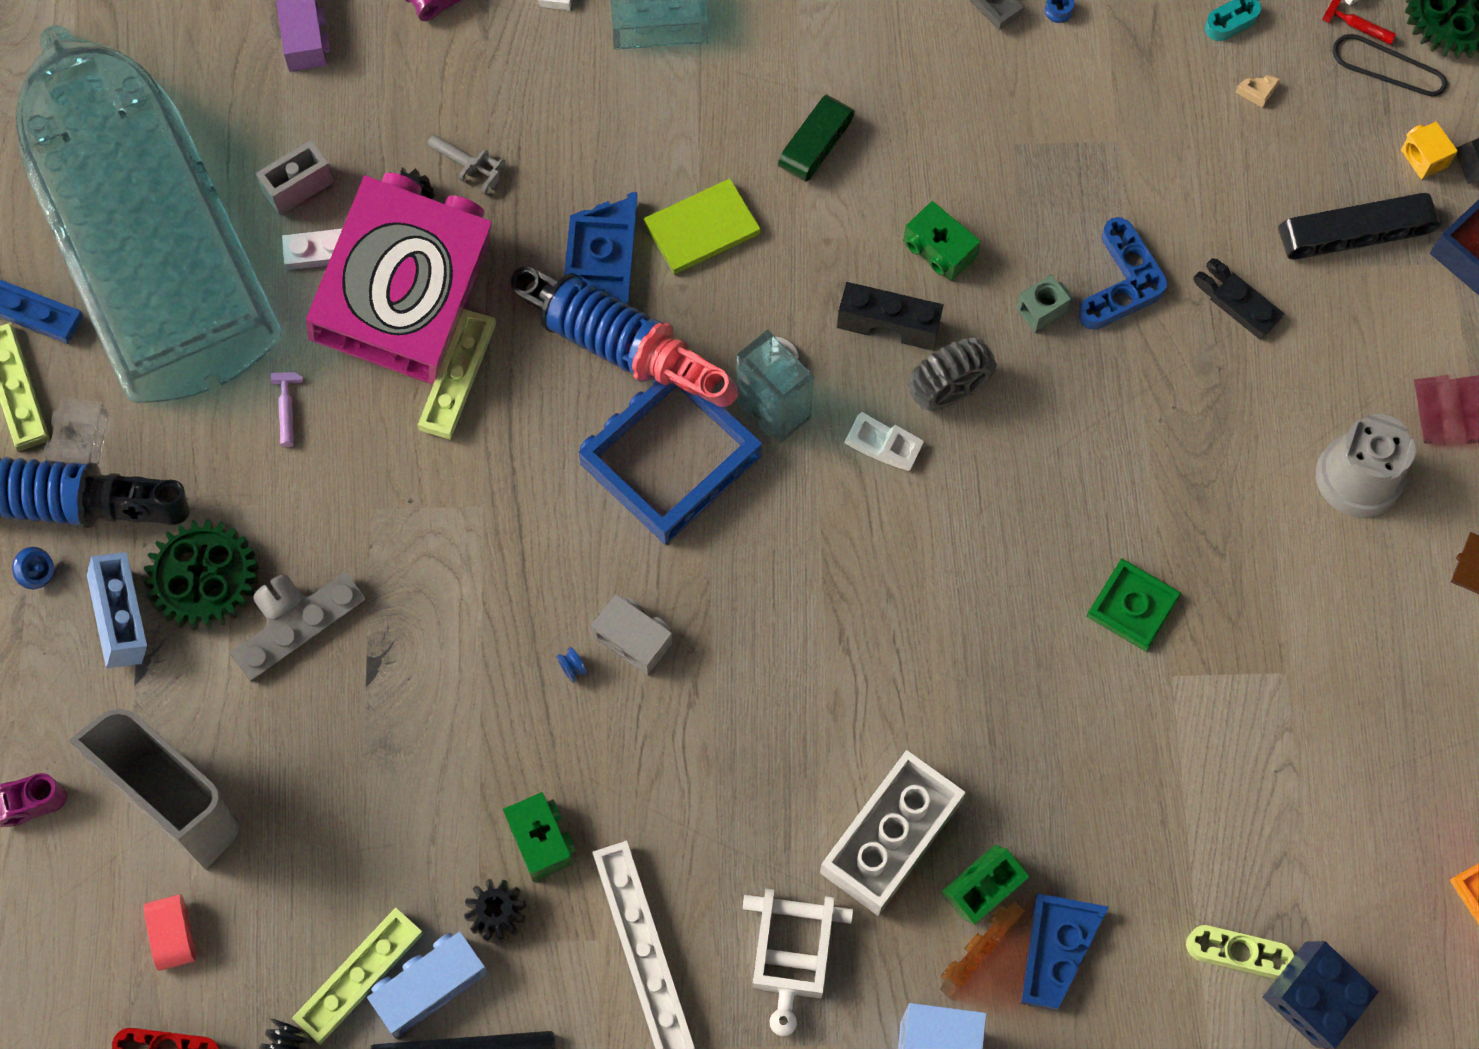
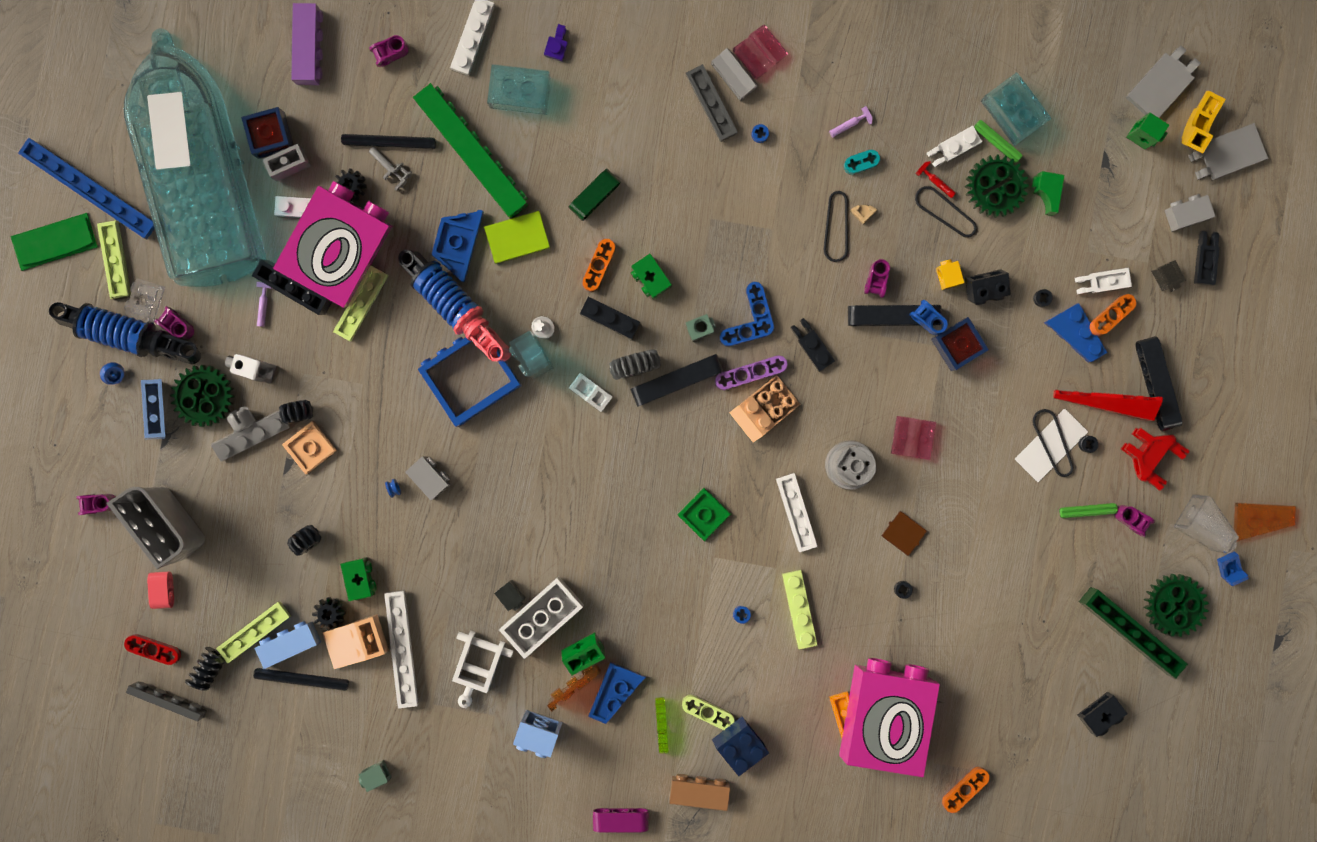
camera: 15 degrees right, 20 degrees up
(97, 142) = (168, 130): none -> white sticker
(133, 461) = (172, 322): none -> magenta piece
(253, 136) = (267, 132): none -> piece
(283, 507) = (251, 368): none -> light grey torso
(337, 364) = (302, 295): none -> black brick
(375, 564) = (295, 411): none -> black gear
(407, 628) = (309, 447): none -> light nougat tile
(427, 782) = (304, 540): none -> black gear
(457, 123) = (388, 141): none -> black axle
(554, 952) = (356, 642): none -> light nougat slope
(599, 111) = (470, 151): none -> green brick
(825, 810) = (510, 596): none -> pearl dark grey brick
(845, 230) = (599, 249): none -> orange beam
(1026, 393) = (676, 380): none -> black beam
(1151, 363) = (750, 370): none -> medium lavender beam
(1162, 991) = (661, 725): none -> clear neon green beam
(1187, 410) = (764, 408): none -> light nougat slope
(1236, 112) = (846, 227): none -> black piece
(1242, 770) = (737, 618): none -> blue bush
(1294, 567) = (796, 512): none -> white plate
(1313, 180) = (877, 280): none -> magenta piece
(1349, 733) = (799, 609): none -> yellowish green plate
(1421, 208) = (928, 317): none -> blue piece

